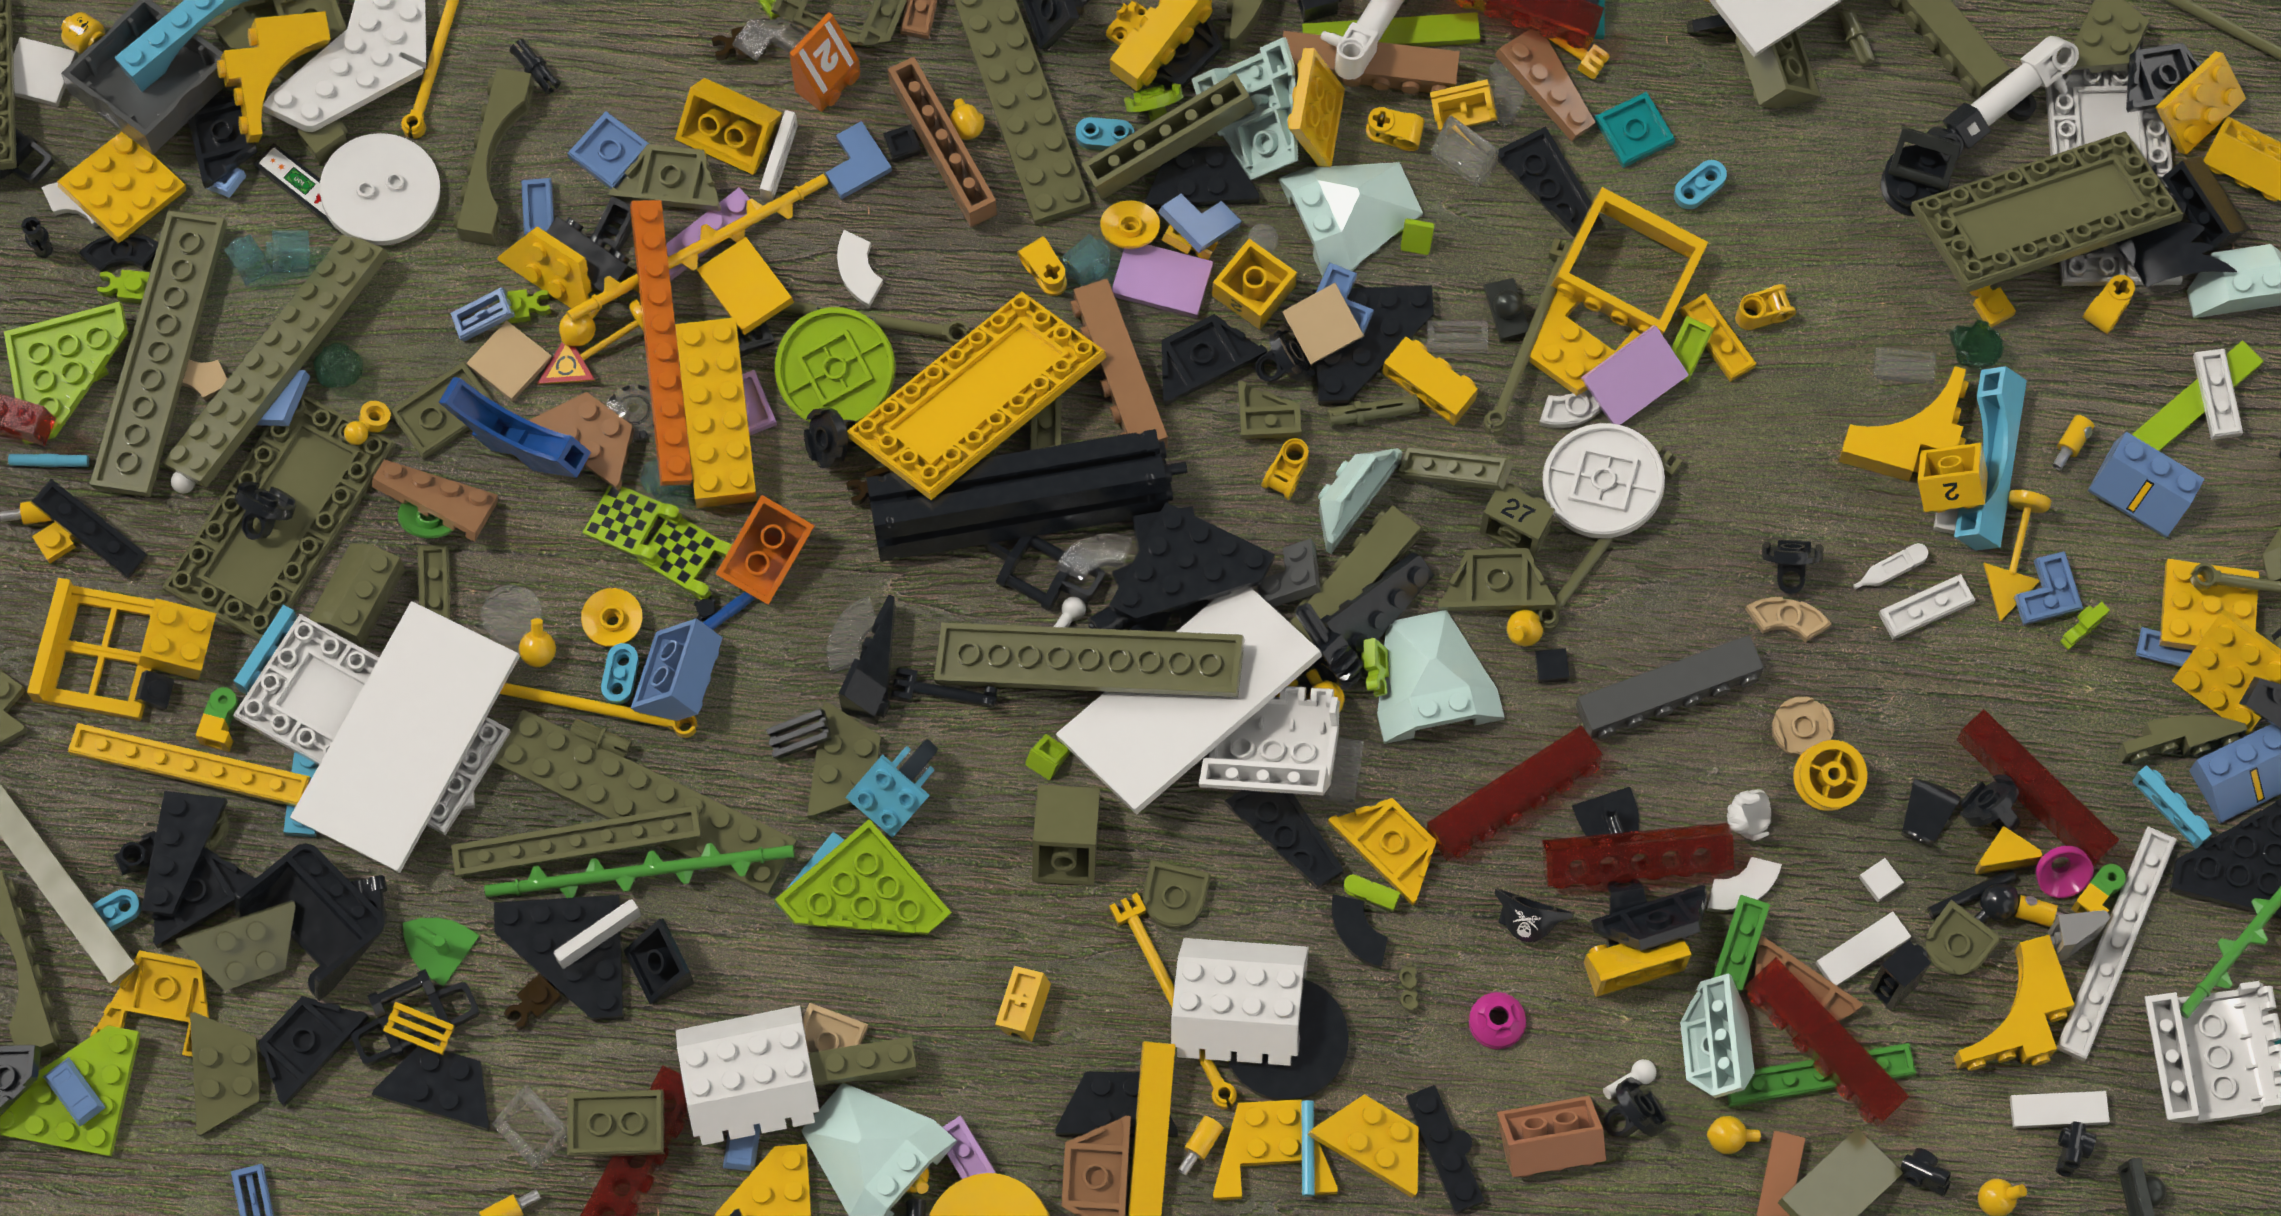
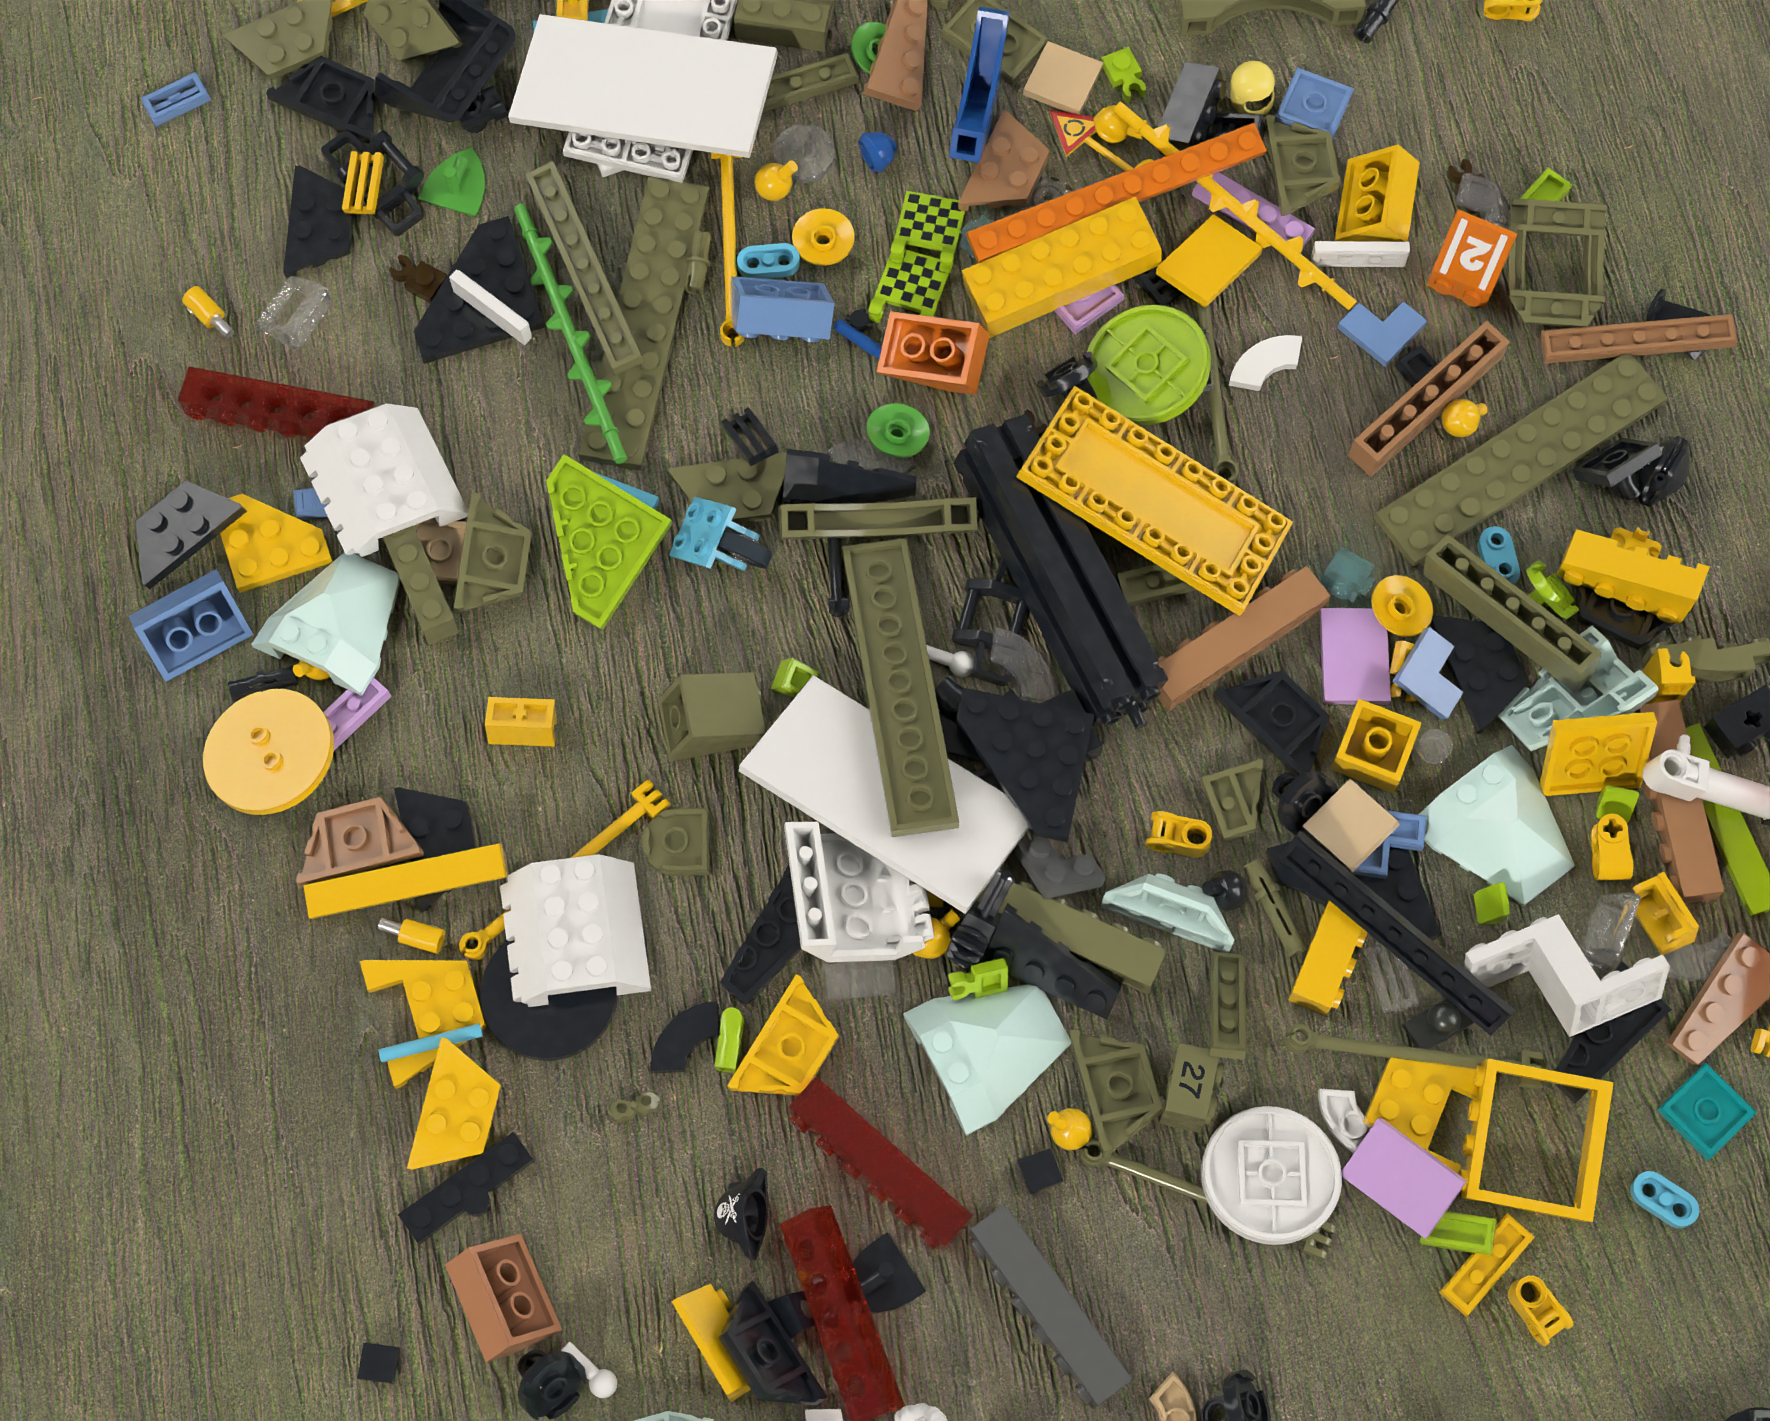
camera: 75 degrees right, 0 degrees up
(495, 319) = (1096, 41): medium blue tile -> none
(535, 545) = (877, 150): none -> blue cone
(537, 204) = (1232, 55): medium blue tile -> none
(550, 266) = (1167, 80): yellow wing -> none
(578, 197) = (1252, 83): none -> light yellow helmet
(615, 1123) = (303, 374): olive tile -> none
(658, 963) = (484, 378): black slope -> none
(830, 591) = (899, 421): none -> bright green dish
(851, 994) = (491, 557): none -> olive wing
(911, 674) = (877, 519): none -> olive arch
(1043, 263) = (1327, 535): yellow piece -> none
(1258, 35) = (1670, 680): none -> yellow hinge
(1347, 442) = (1227, 889): none -> black piece
(1356, 112) = (1616, 801): none -> lime slope
(1428, 316) = (1396, 933): none -> black tile
(1494, 1035) = (629, 1226): dark pink piece -> none
(1499, 197) = (1566, 975): none -> white bracket

